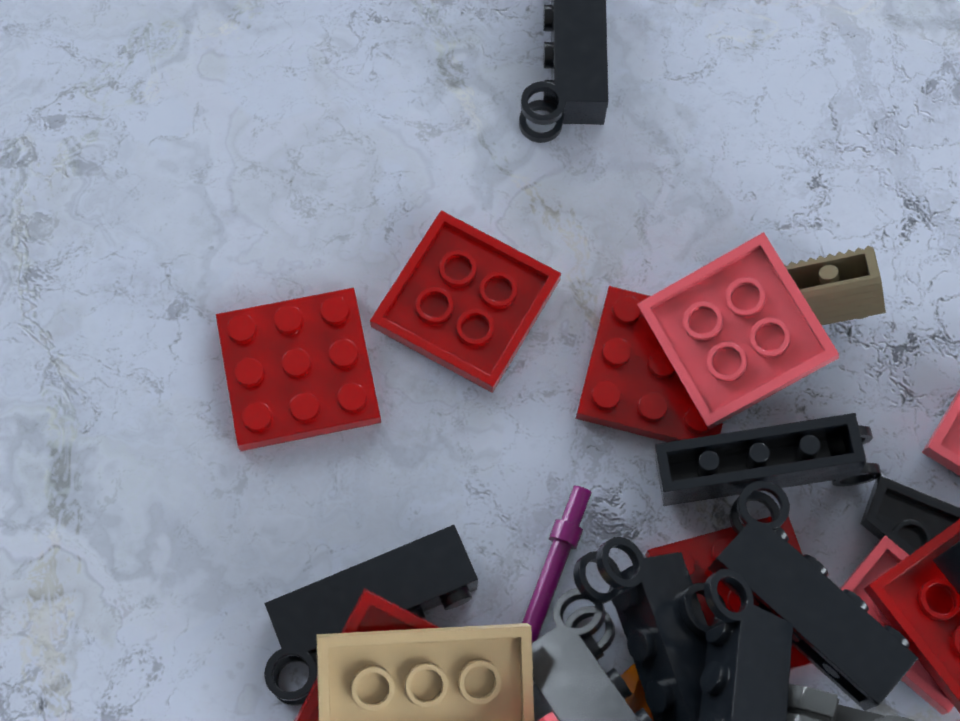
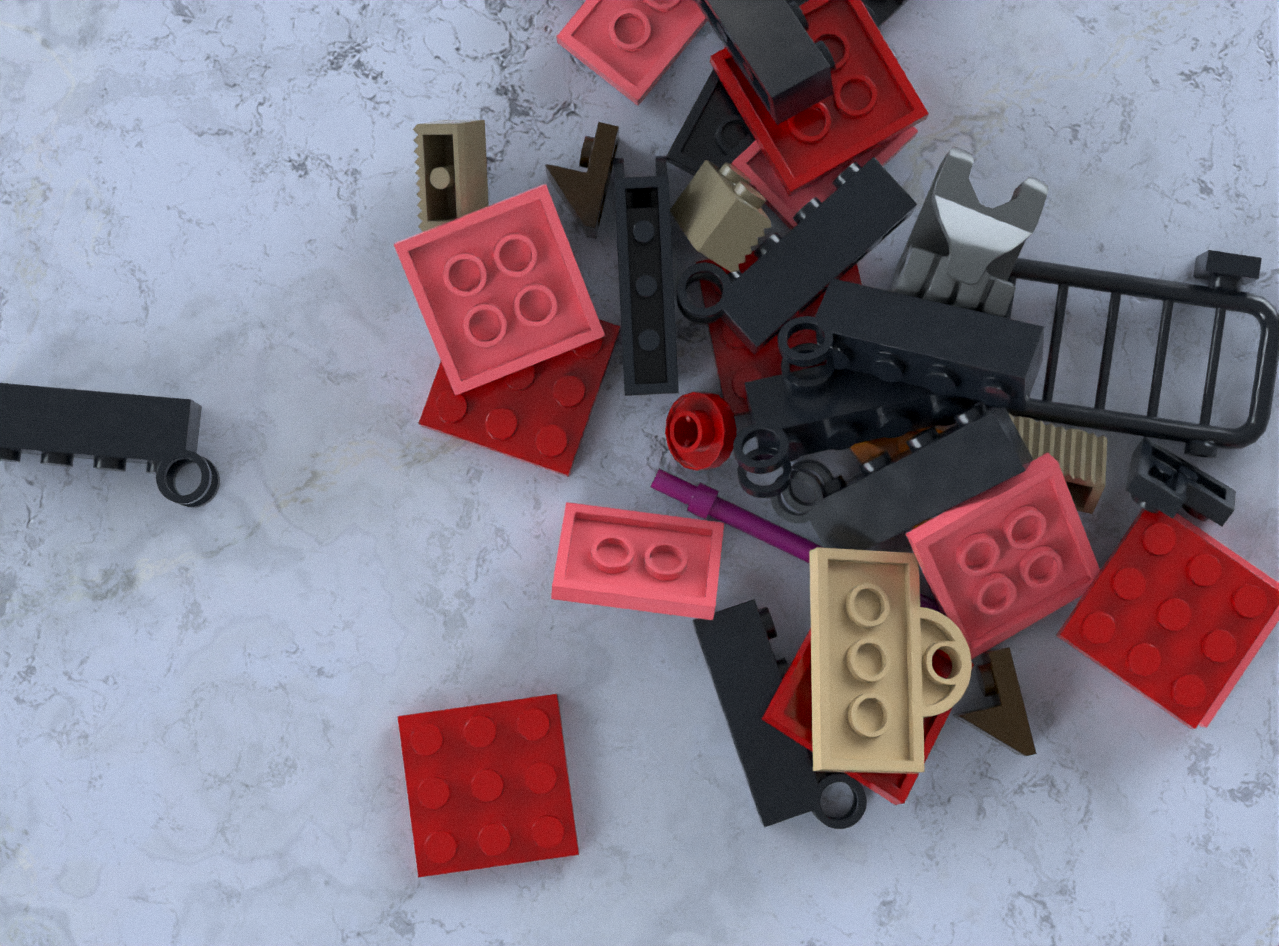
camera: 80 degrees left, 15 degrees up
(466, 301) = (422, 588): red plate -> none
(504, 475) = (638, 561): none -> coral plate
(632, 518) = (700, 430): none -> red plate
(836, 520) = (721, 214): none -> dark tan brick
(839, 400) = (587, 191): none -> dark brown slope

